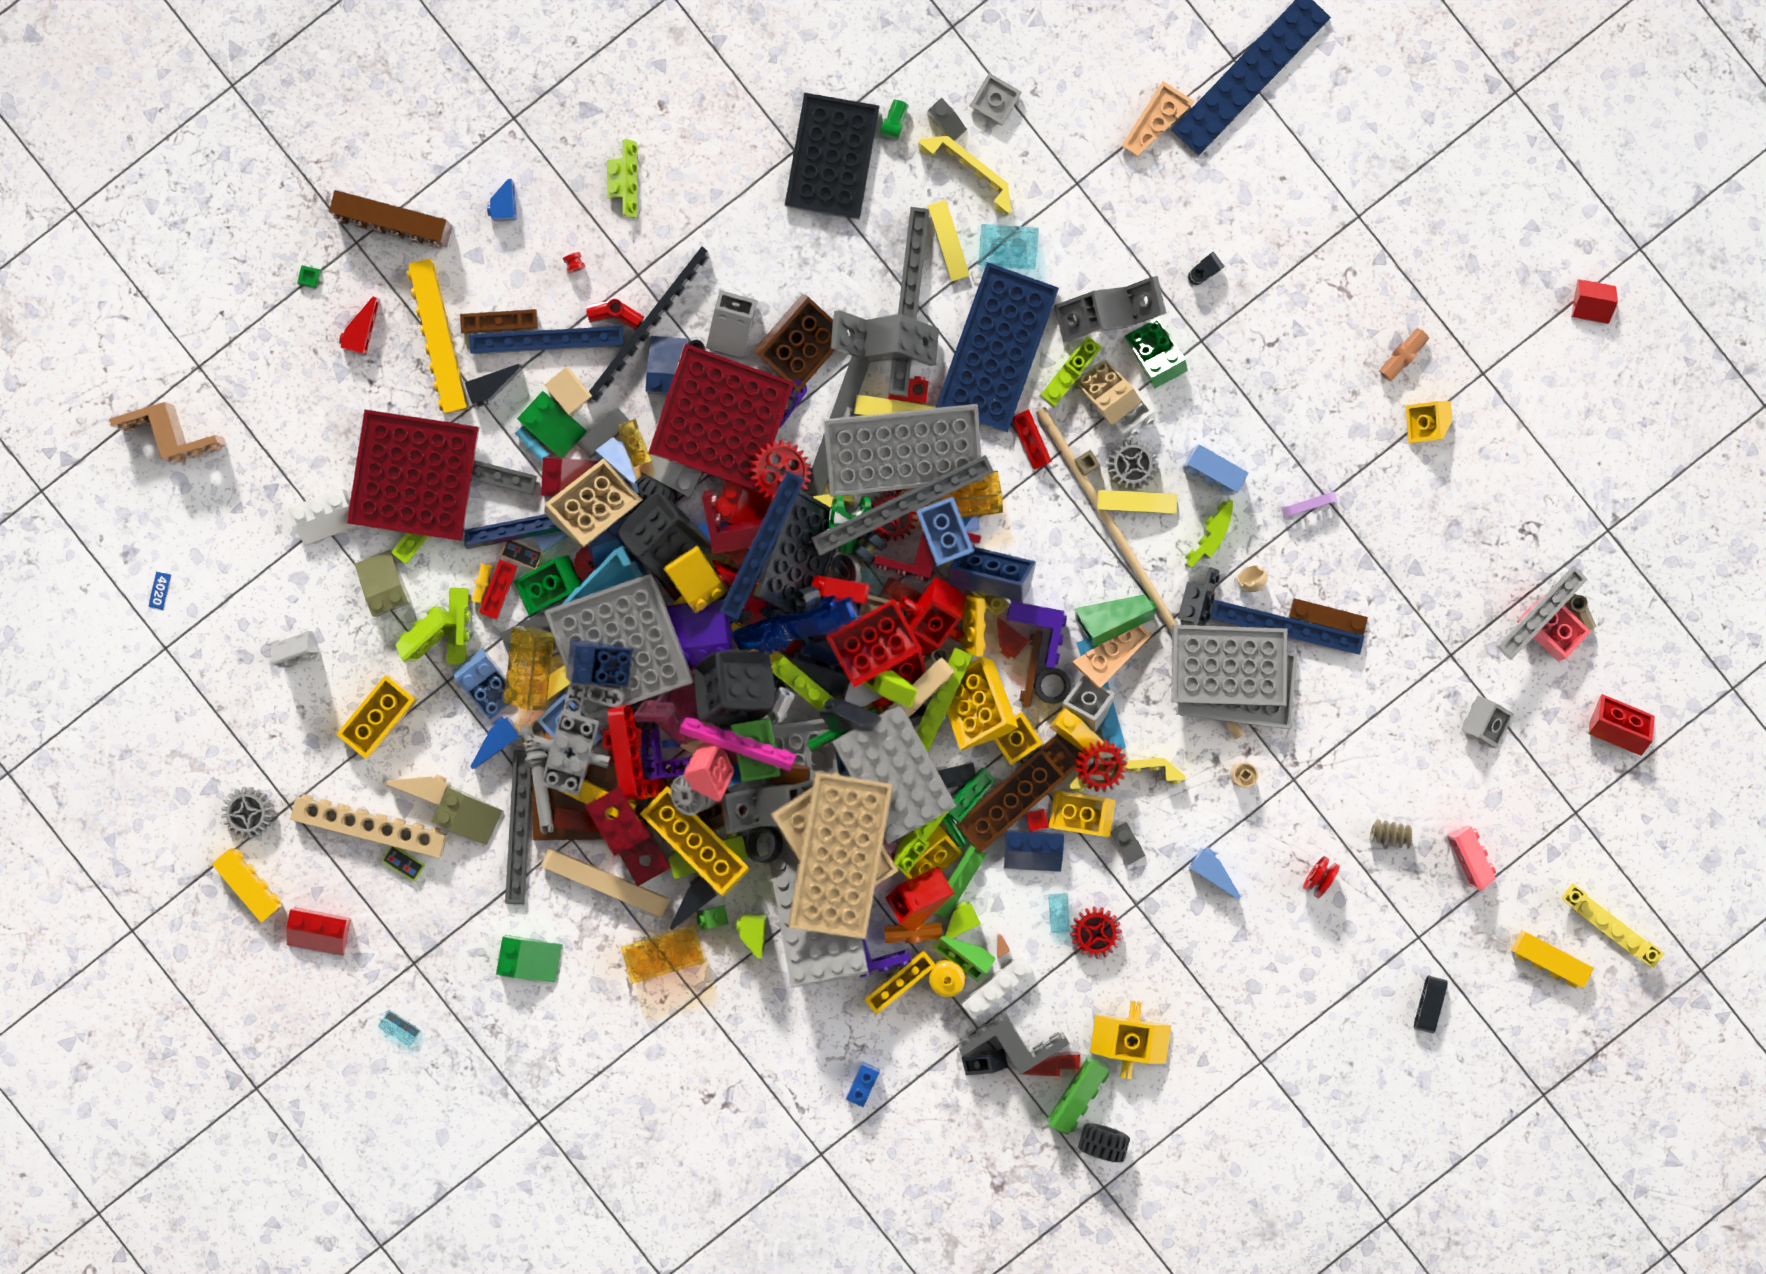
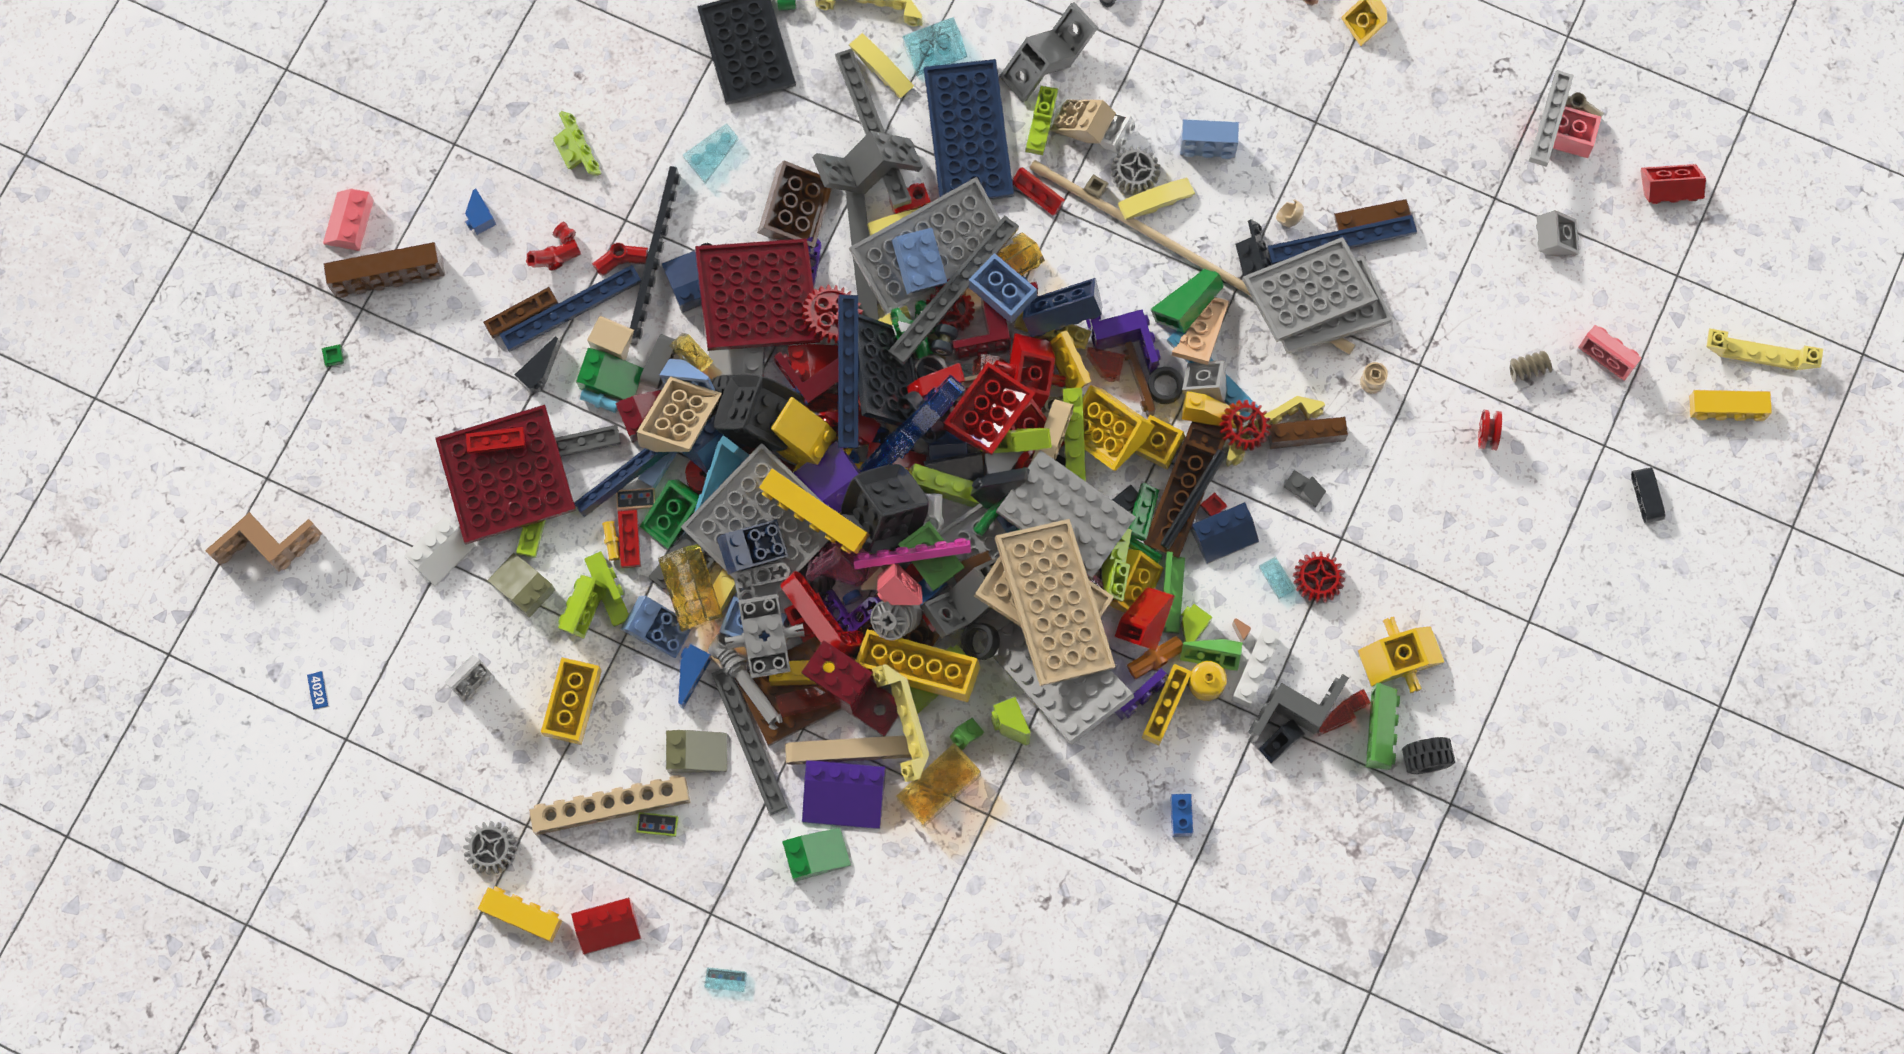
camera: 20 degrees left, 15 degrees down
(359, 331) = (399, 379): red slope -> none
(381, 148) = (349, 219): none -> coral slope
(417, 441) = (495, 440): none -> red plate
(428, 788) = (646, 744): tan slope -> none
(438, 336) = (473, 350): yellow brick -> none
(553, 281) = (553, 256): none -> red piece
(578, 917) = (843, 794): none -> dark purple slope
(649, 929) = (909, 718): none -> light yellow slope
(667, 662) = (814, 511): none -> yellow brick
(695, 898) = (943, 721): black slope -> none
(731, 323) = (727, 215): light grey slope -> none
(747, 248) = (710, 152): none -> clear light blue wing
(882, 464) = (919, 261): none -> medium blue brick
(1020, 808) = (1193, 499): none -> black axle
(1082, 813) = (1251, 480): yellow slope -> none
(1156, 353) = (1108, 72): green slope -> none
(1157, 795) = (1308, 432): none -> reddish brown brick
(1212, 869) = (1393, 473): medium blue slope -> none
(1216, 528) = (1236, 194): lime slope -> none
(1309, 504) = (1304, 131): lavender beam -> none

